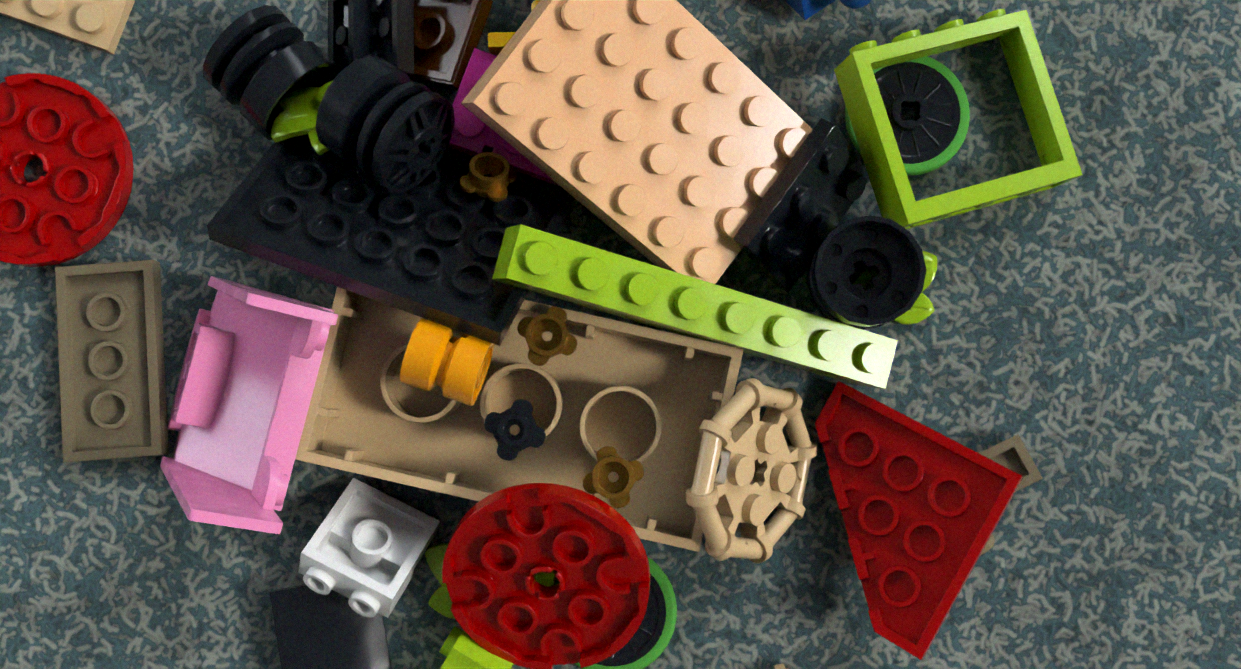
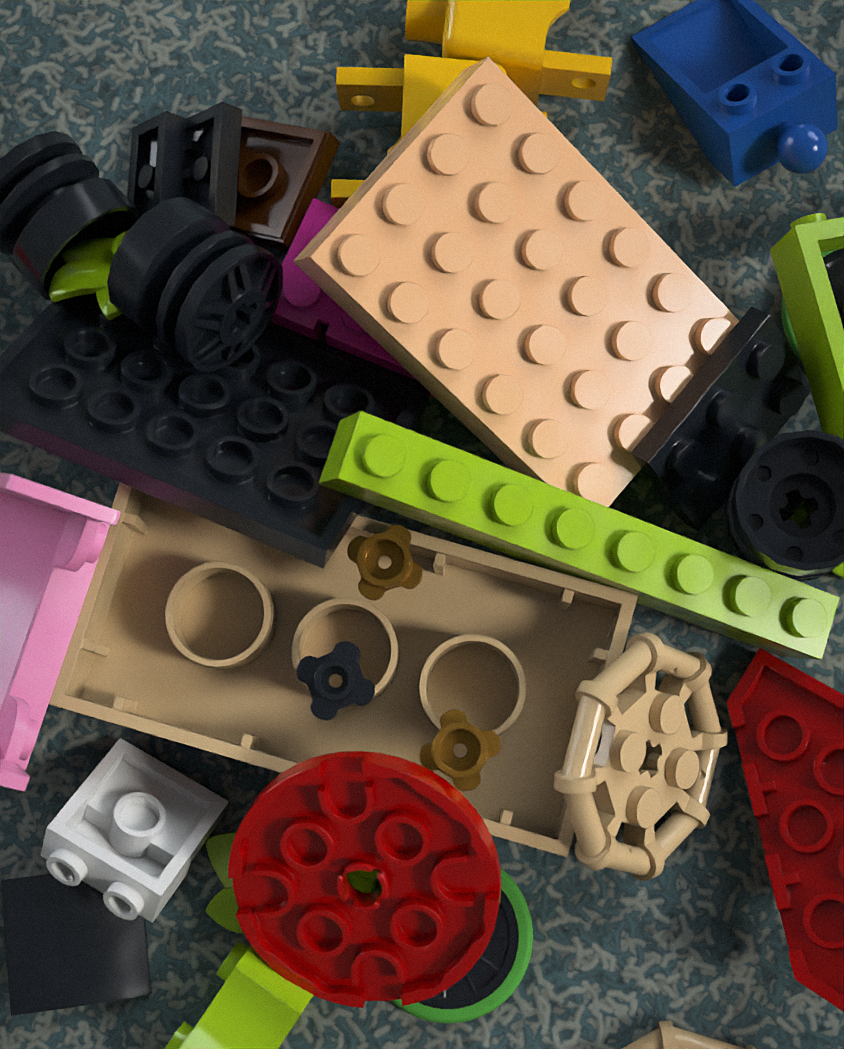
camera: 10 degrees right, 5 degrees down
(446, 361) = (248, 584): light orange wheel -> none
(488, 176) = (321, 358): pearl gold plate -> none

